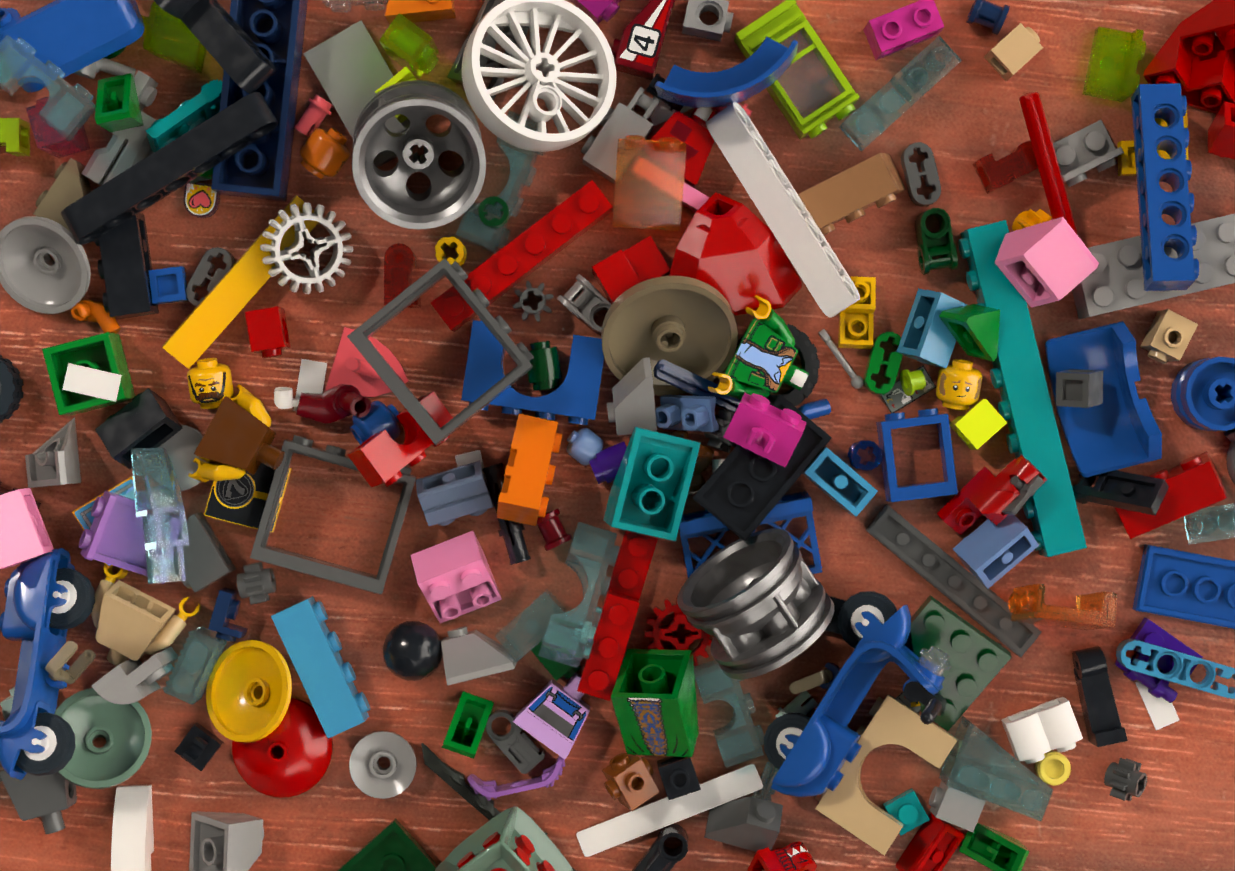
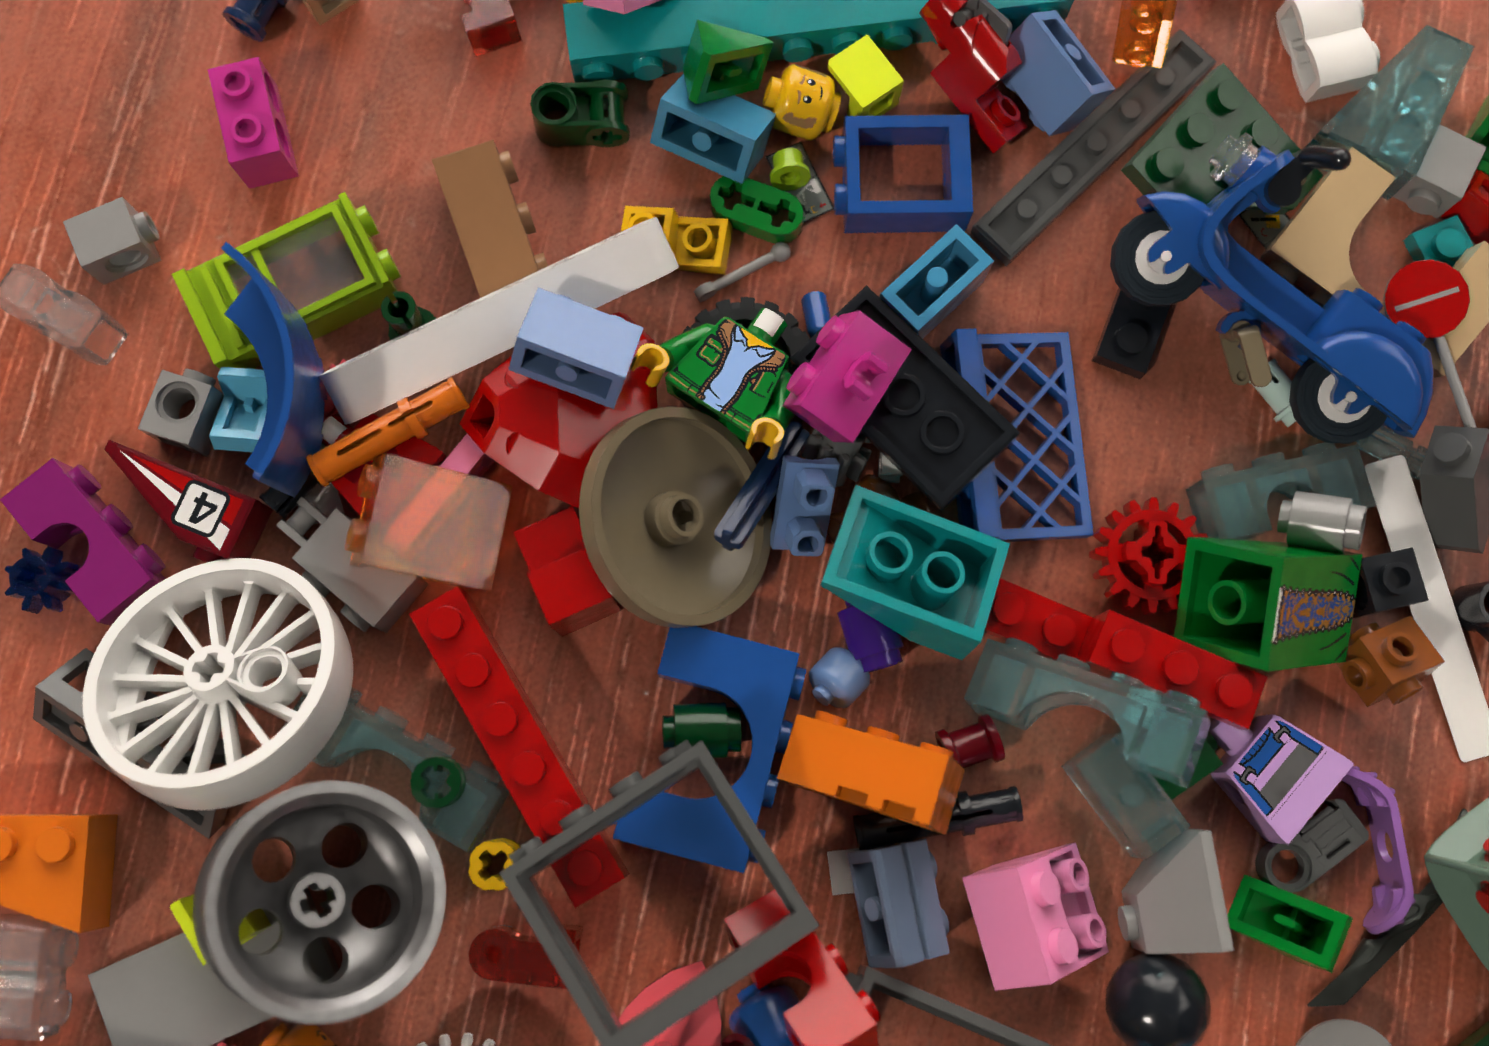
camera: 85 degrees left, 10 degrees down
(410, 46) = (136, 894): clear neon green brick -> none
(524, 296) = (583, 725): dark grey gear -> none
(586, 304) = (610, 647): light grey piece -> none
(634, 400) = (774, 586): light grey slope -> none
(709, 731) = (1322, 522): none -> light grey brick
(710, 54) = (241, 409): none -> medium azure bracket
(727, 182) = (390, 430): none -> orange pin
(756, 604) = (1130, 419): flat silver wheel -> none
(764, 261) = (575, 348): none -> brick
(781, 149) = (404, 314): none -> dark green pin
(859, 794) = (1433, 301): none -> red piece
(874, 451) = (891, 233): clear blue bush -> none
(900, 93) = (352, 139): clear light blue slope -> none
(929, 173) = (479, 124): dark grey beam -> none
(1053, 768) = (1388, 33): light yellow tile -> none

